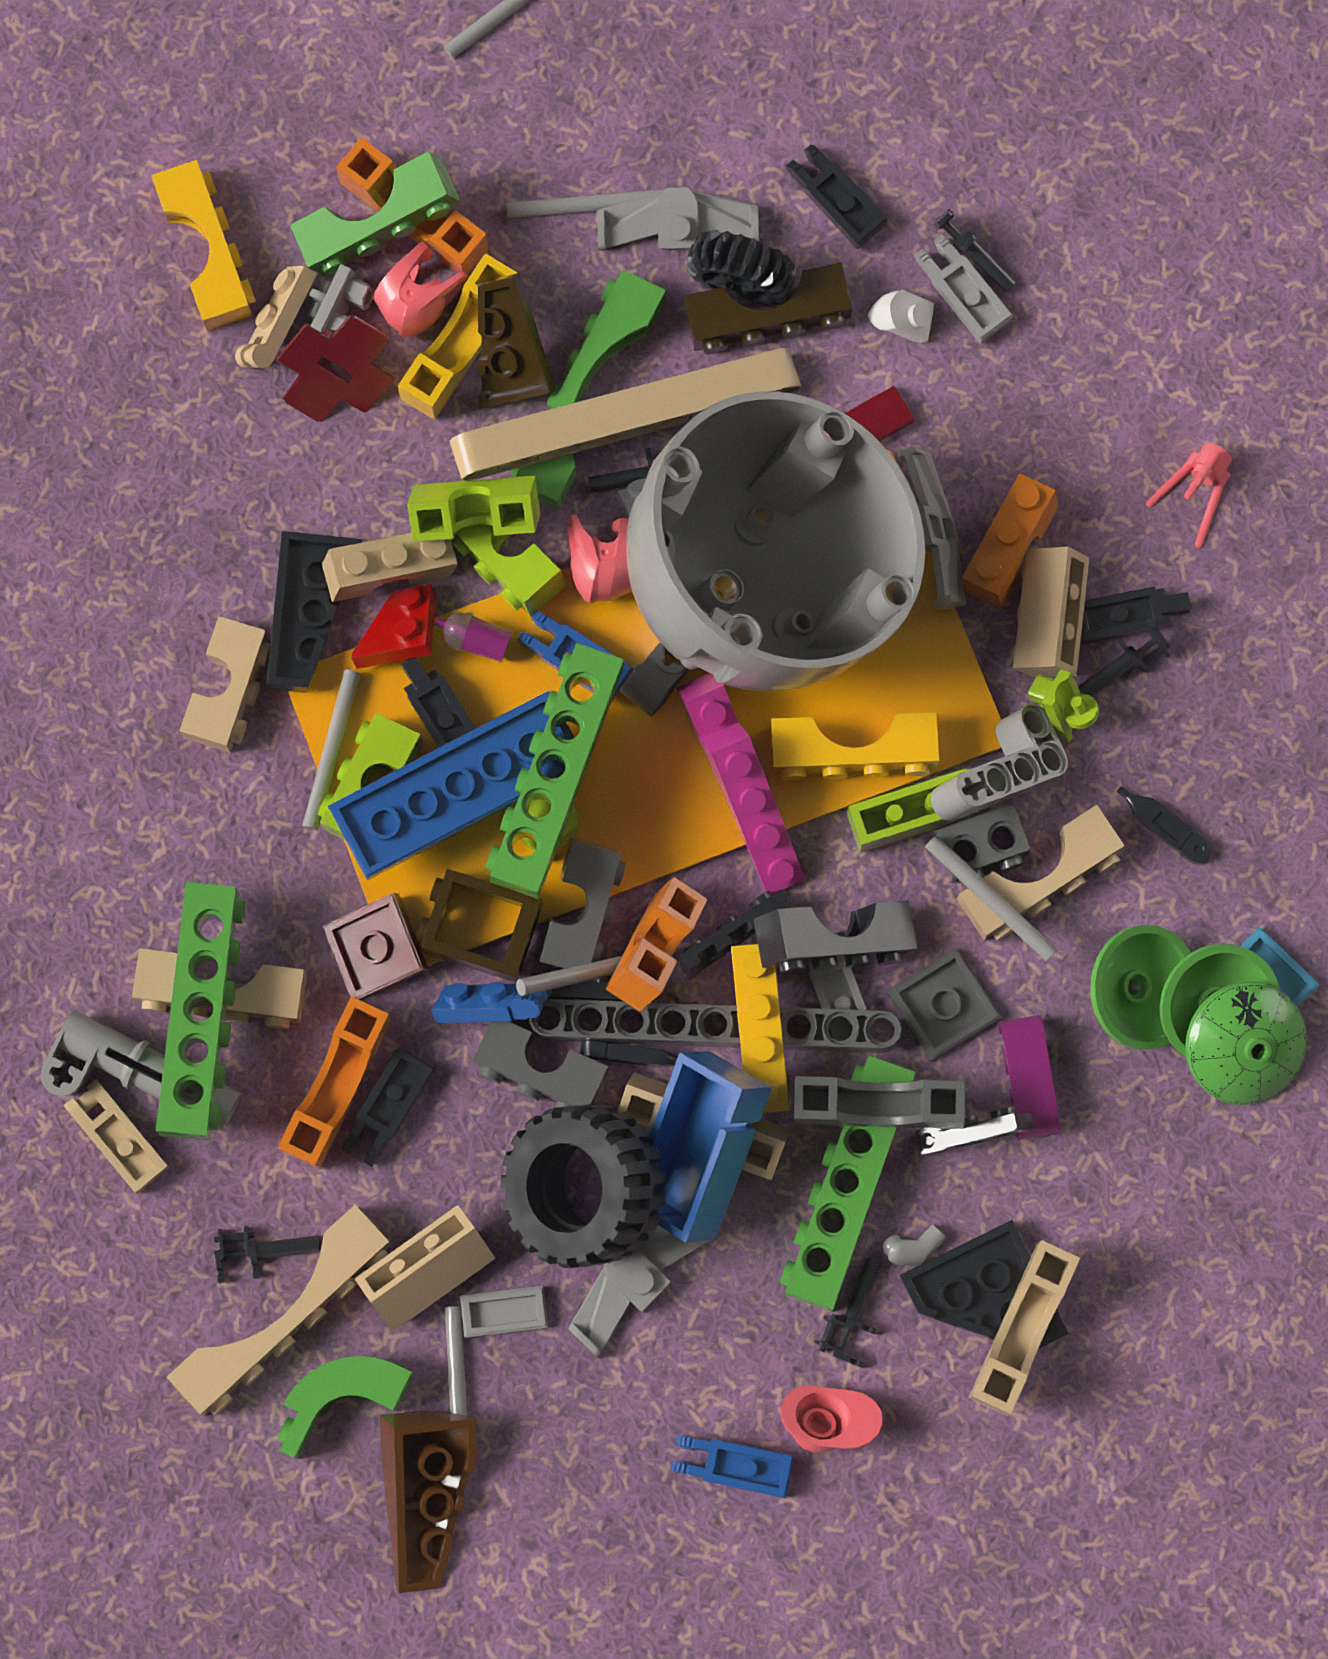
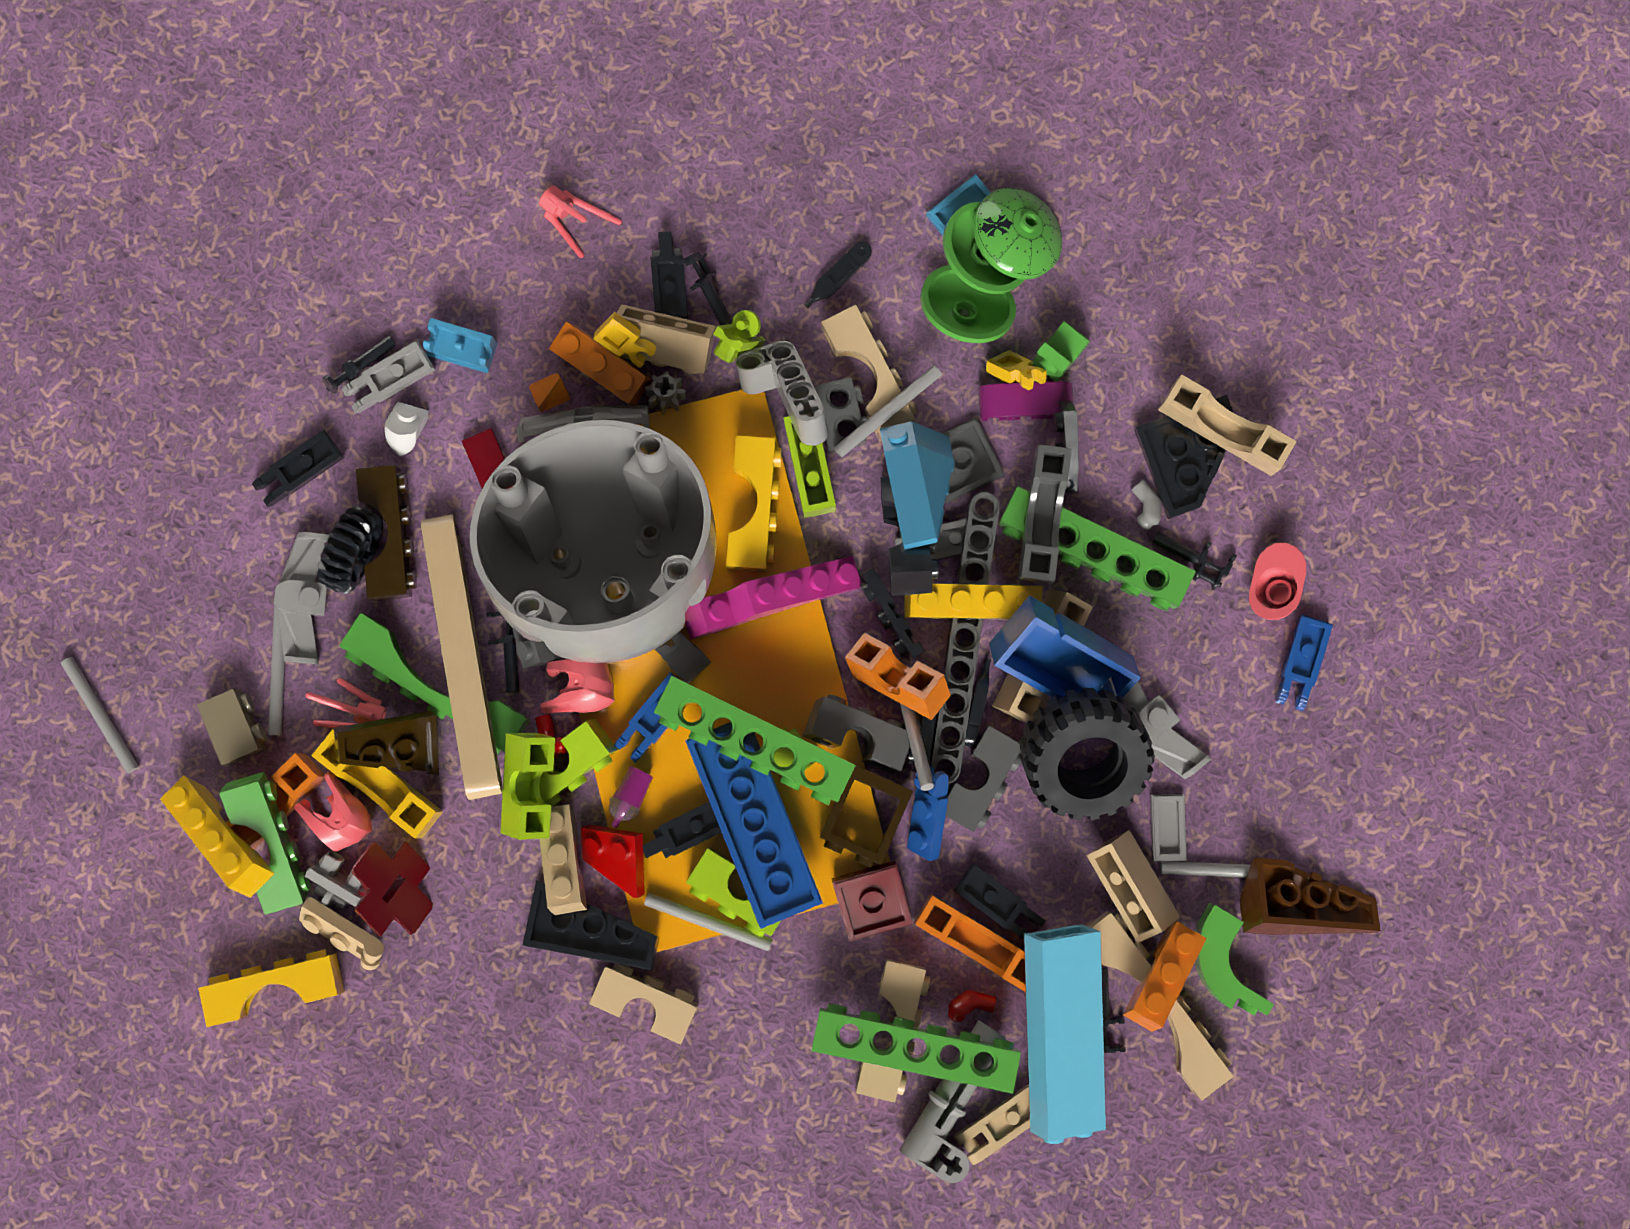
camera: 85 degrees left, 5 degrees up
(235, 1194) = (1065, 1032): none -> medium azure brick
(262, 1080) = (967, 1002): none -> red arm
(315, 1311) = (1162, 985): none -> orange arch
(352, 176) = (226, 852): none -> yellow arch
(512, 159) = (232, 726): none -> dark tan brick
(543, 310) = (363, 713): none -> coral plant
(545, 531) = (546, 727): none -> red arm
(913, 940) = (919, 476): none -> dark azure wedge
(967, 483) = (549, 392): none -> orange slope
(977, 632) = (657, 389): none -> light grey gear
(1012, 369) = (460, 345): none -> dark azure hinge
(1042, 560) = (623, 337): none -> yellow plate
(1069, 1056) = (1013, 367): none -> yellow plate
(1099, 1114) = (1061, 351): none -> bright green brick

